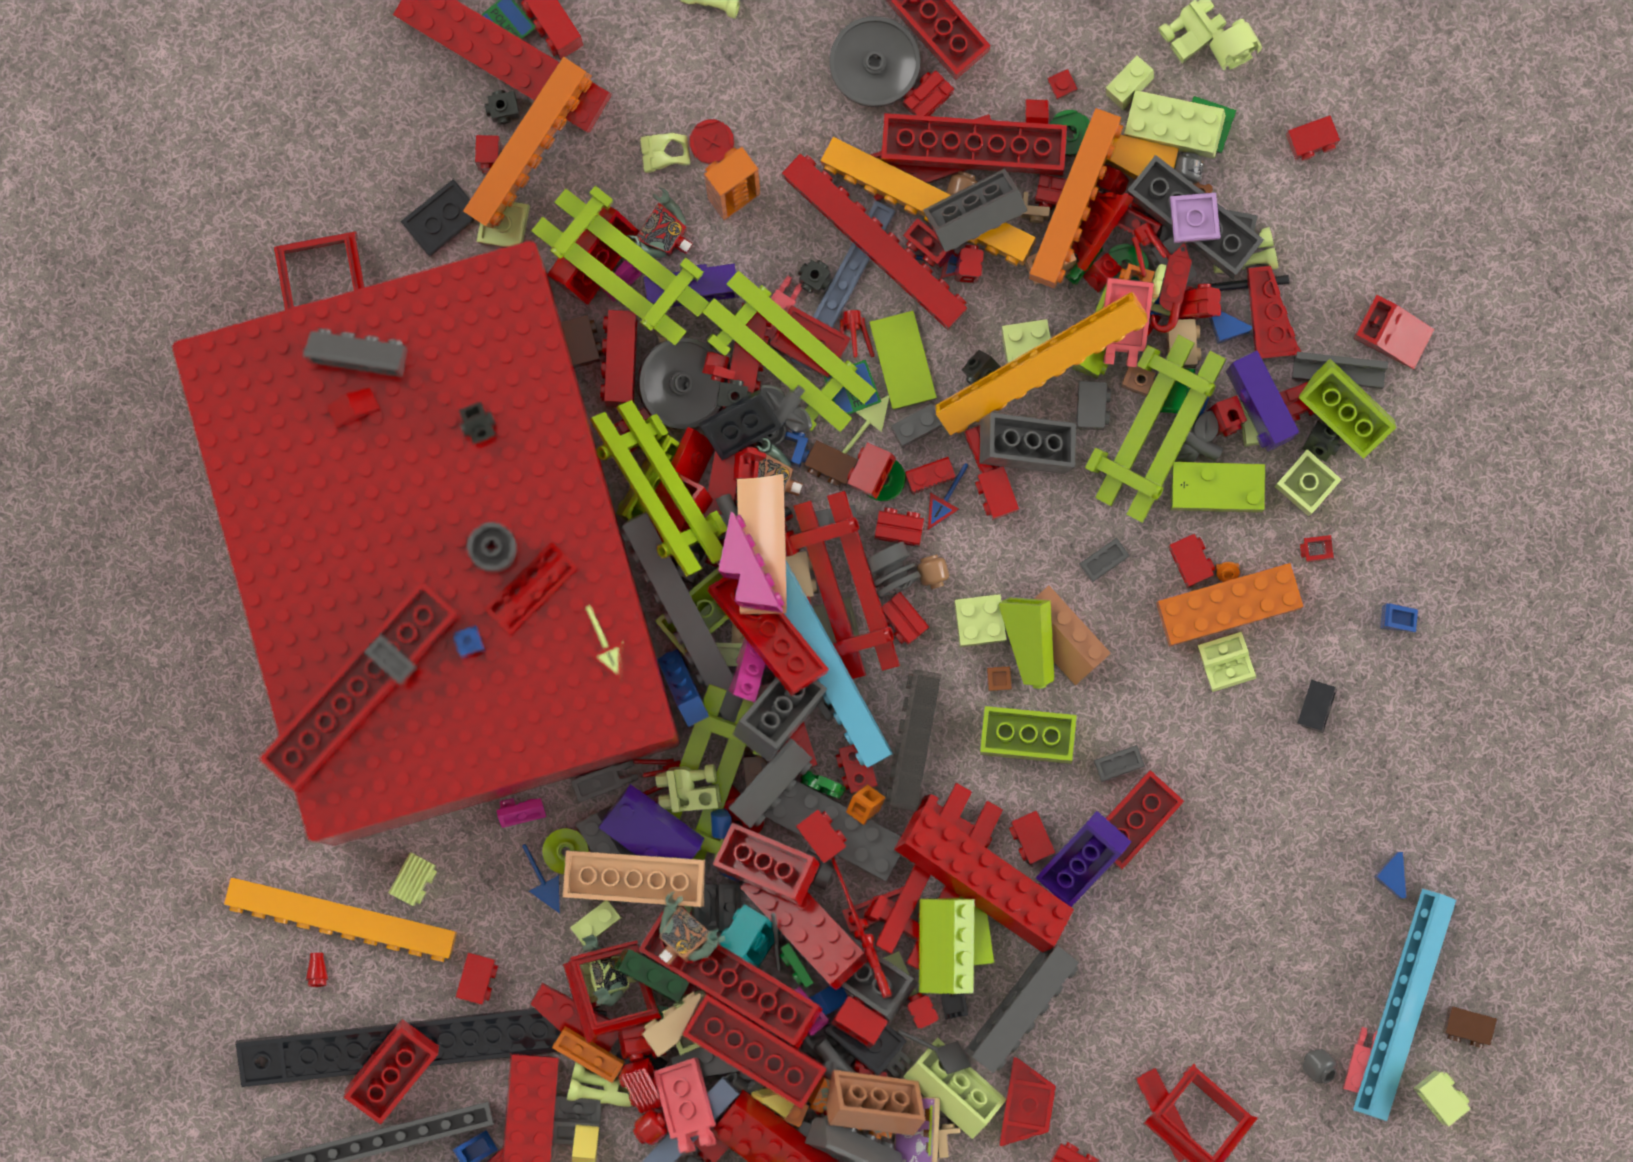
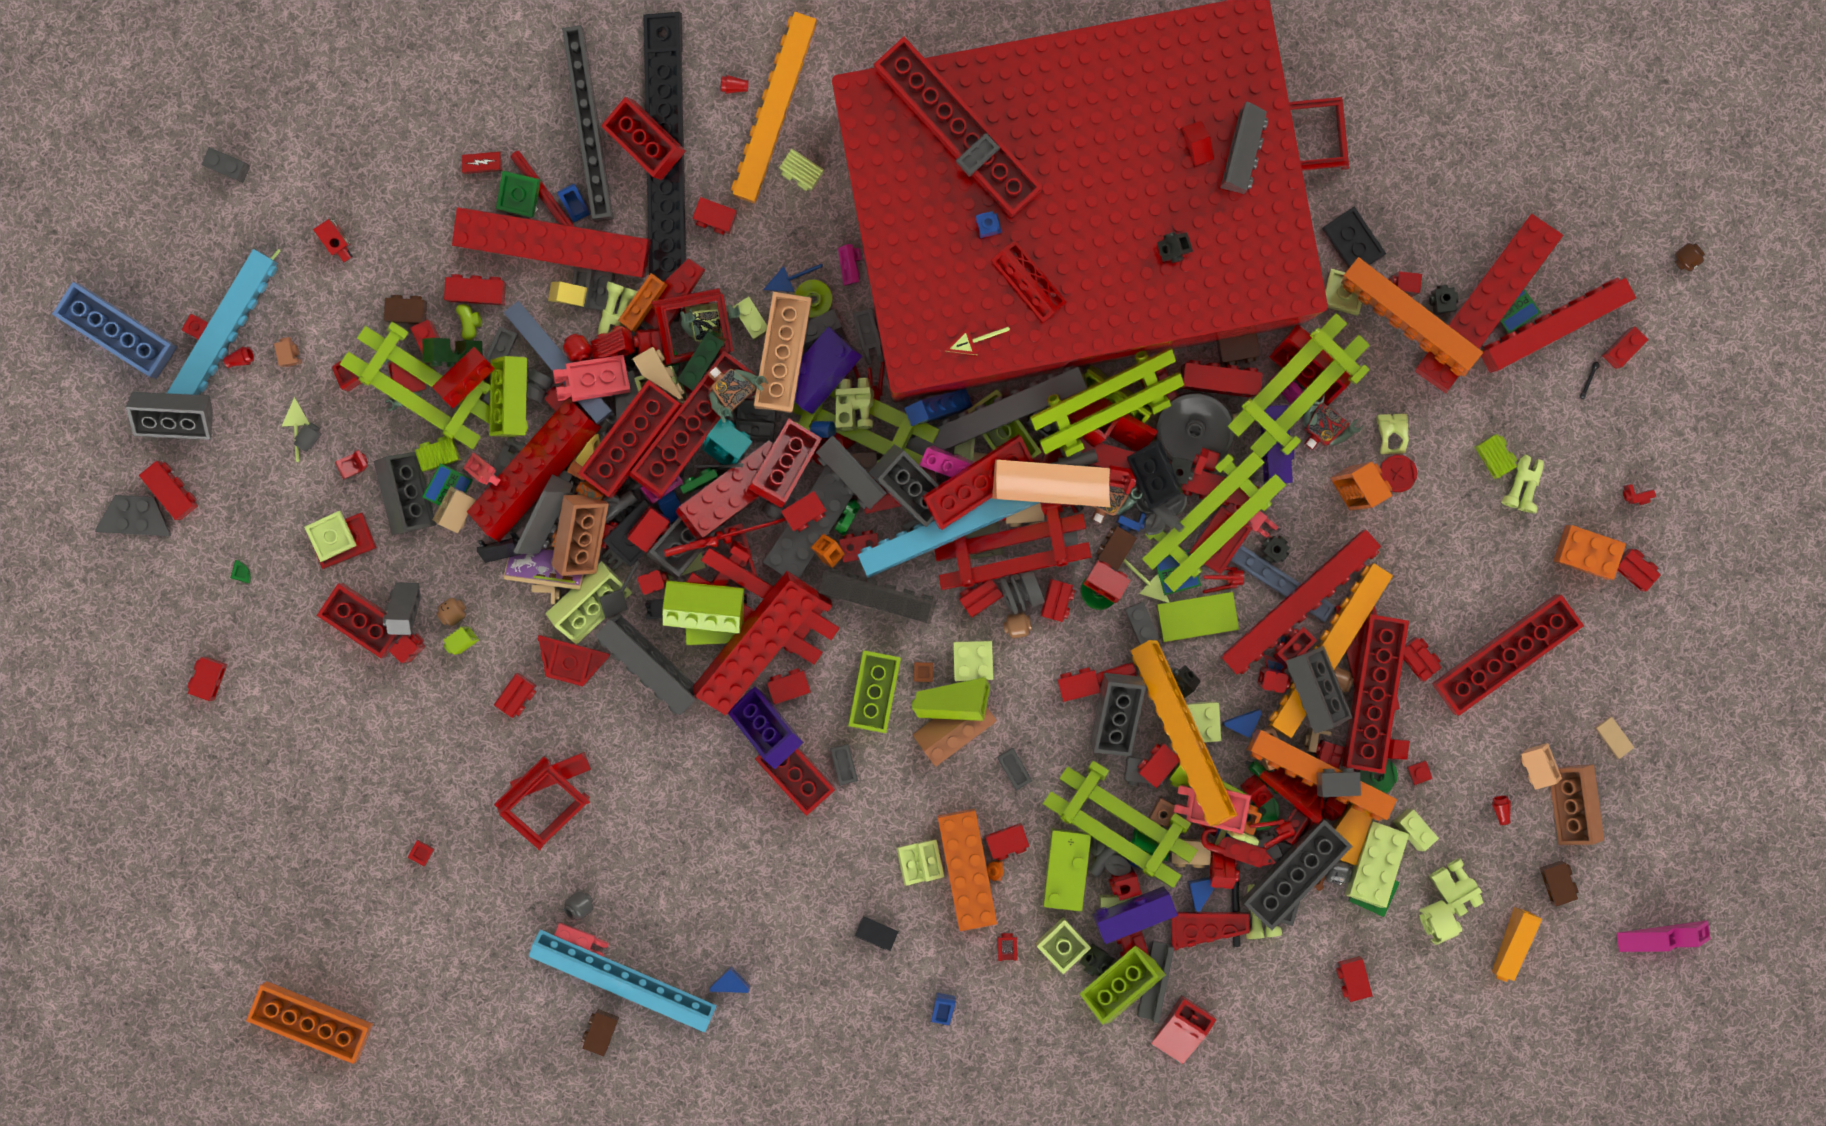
camera: 95 degrees right, 5 degrees up
(483, 537) = (1056, 257): dark grey brick -> none
(680, 29) = (1496, 456): none -> lime brick
(742, 563) = (1037, 465): dark pink slope -> none
(874, 61) = (1453, 616): dark grey dish -> none
(930, 475) = (1098, 630): red brick -> none
(940, 508) = (1070, 636): piece -> none
(1023, 294) = (1244, 723): none -> blue slope
(1082, 390) = (1158, 764): none -> red brick
(1084, 177) = (1338, 783): none -> dark grey brick
(1194, 217) = (1295, 874): lavender tile -> none
(1442, 1098) = (542, 1004): yellowish green brick -> none

